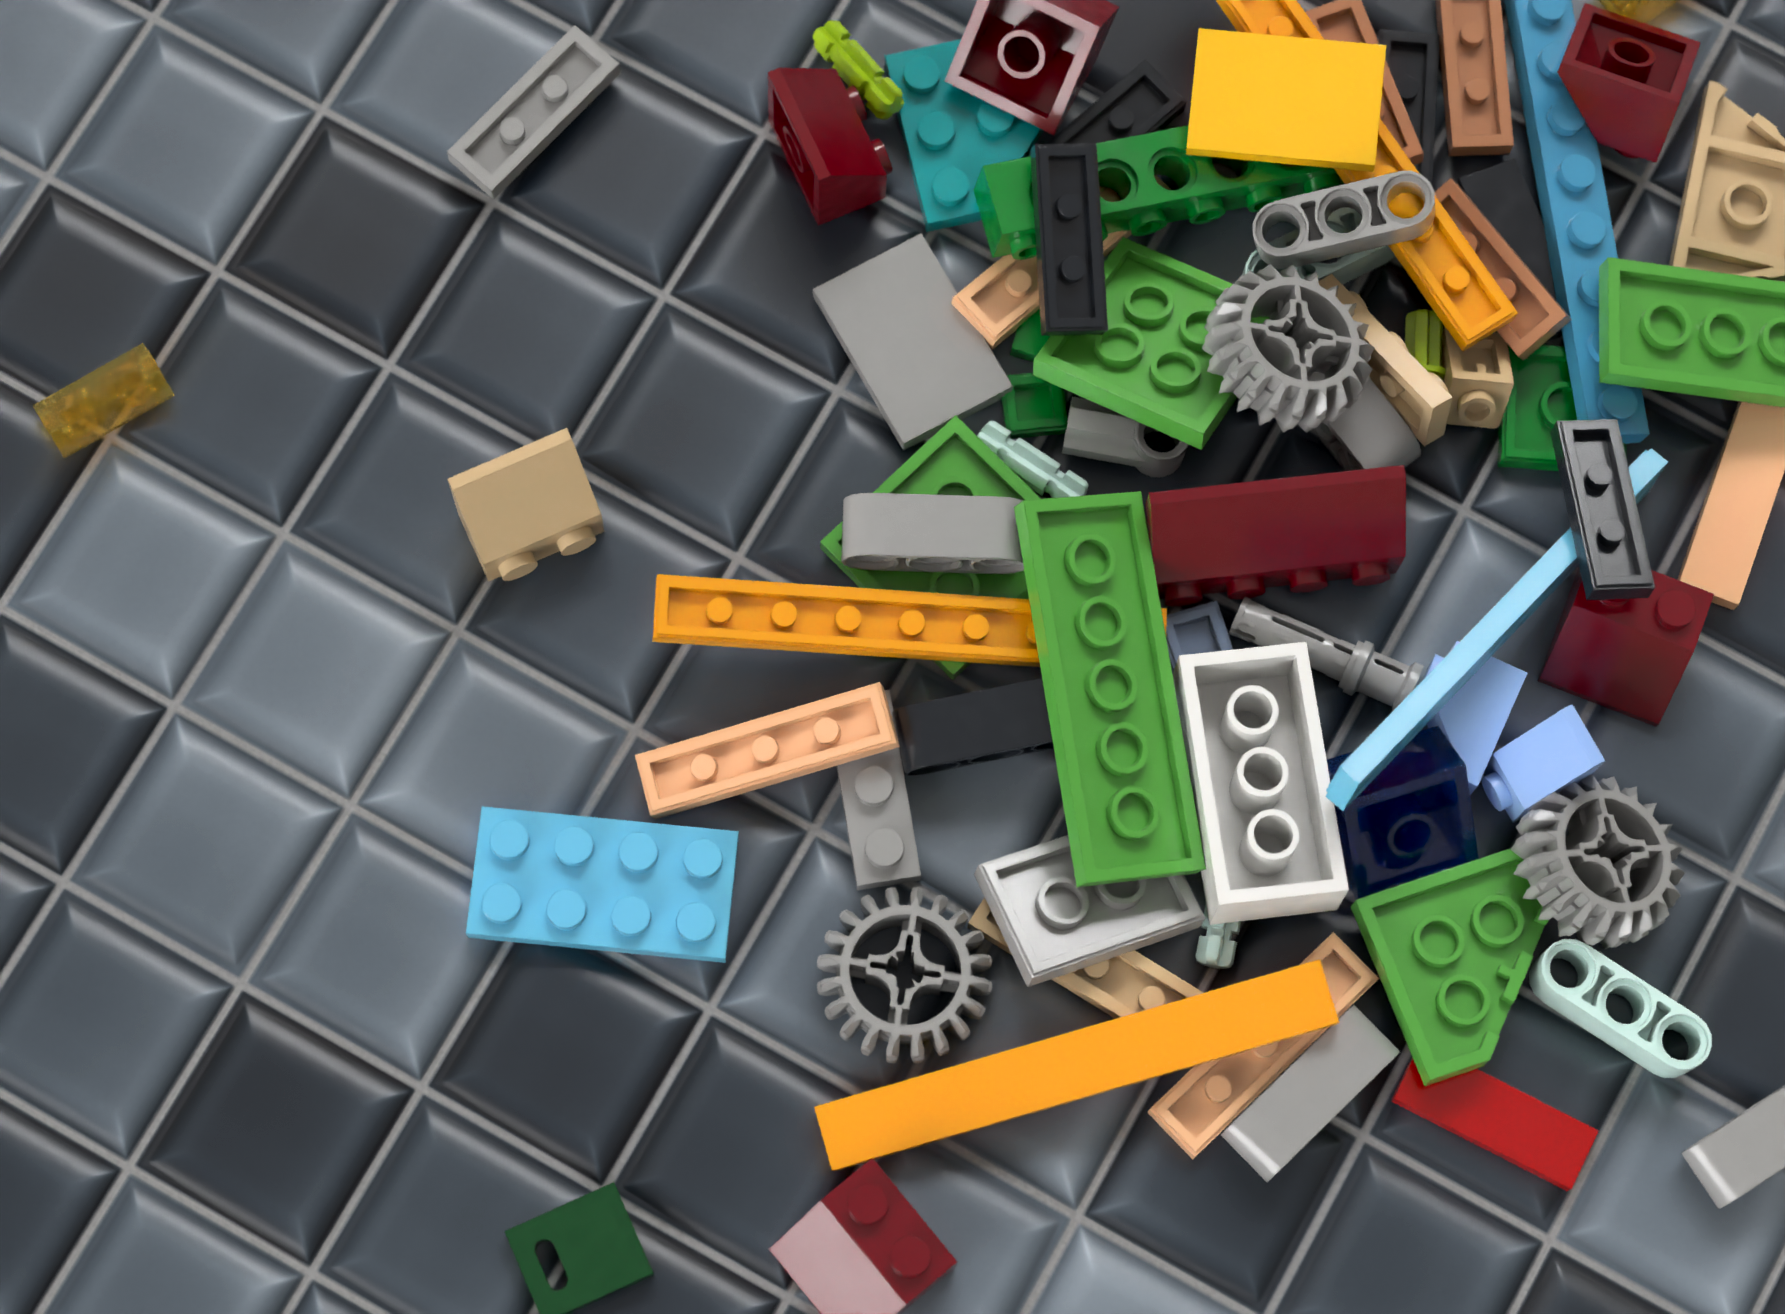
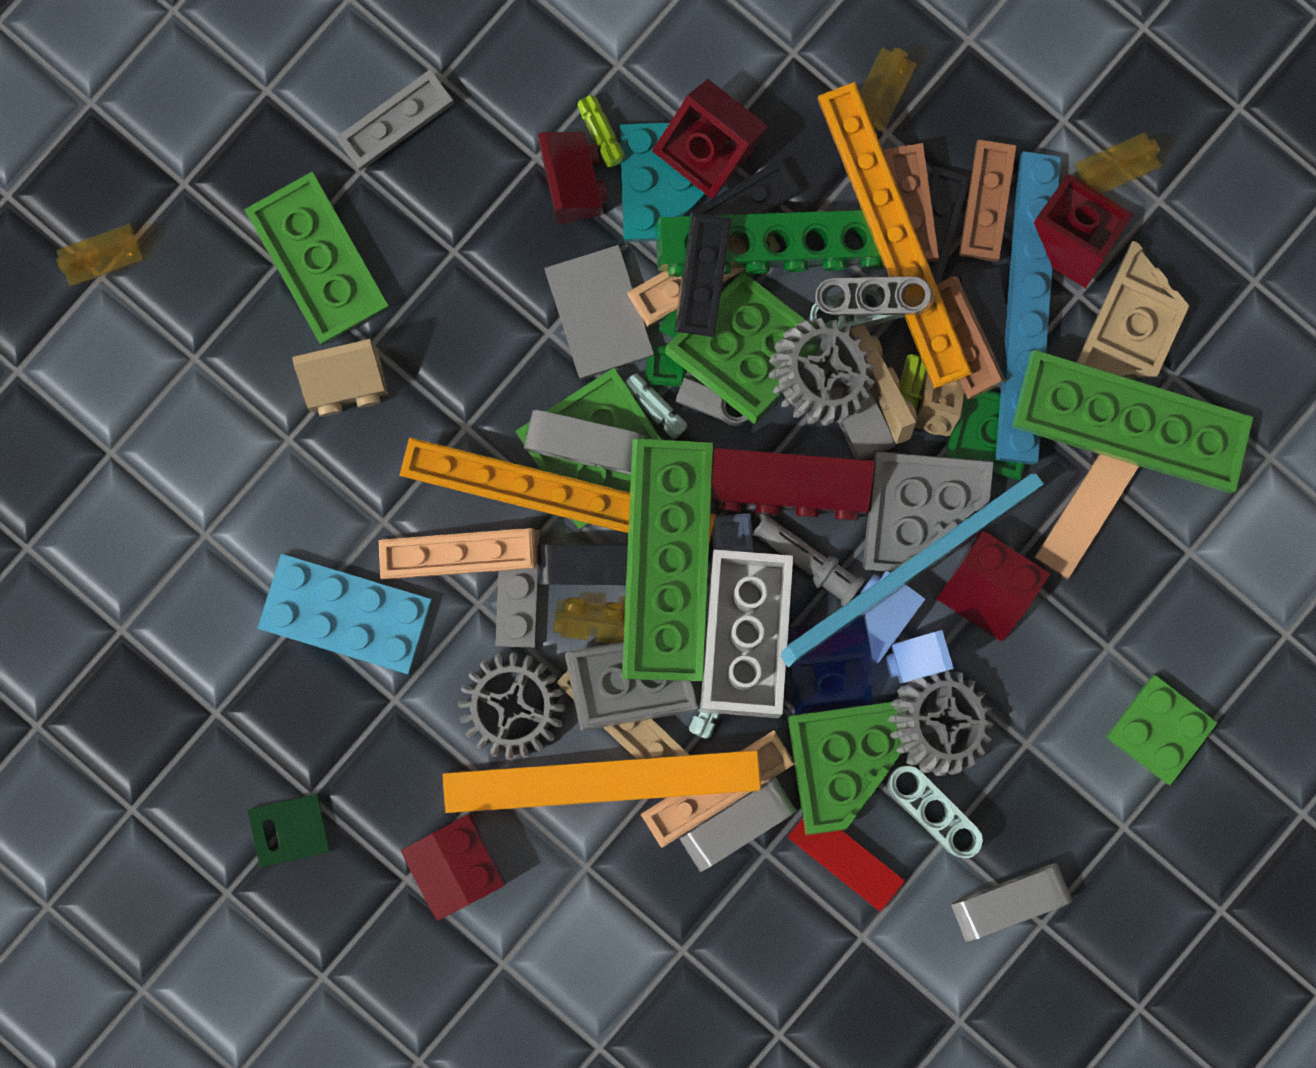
camera: 15 degrees right, 10 degrees up
(452, 340) = (316, 258): none -> bright green plate
(983, 813) = (577, 615): none -> clear yellow hinge
(1286, 100) = (857, 210): yellow tile -> none
(1474, 535) = (919, 502): none -> light grey plate
(1602, 509) = (992, 509): tile -> none

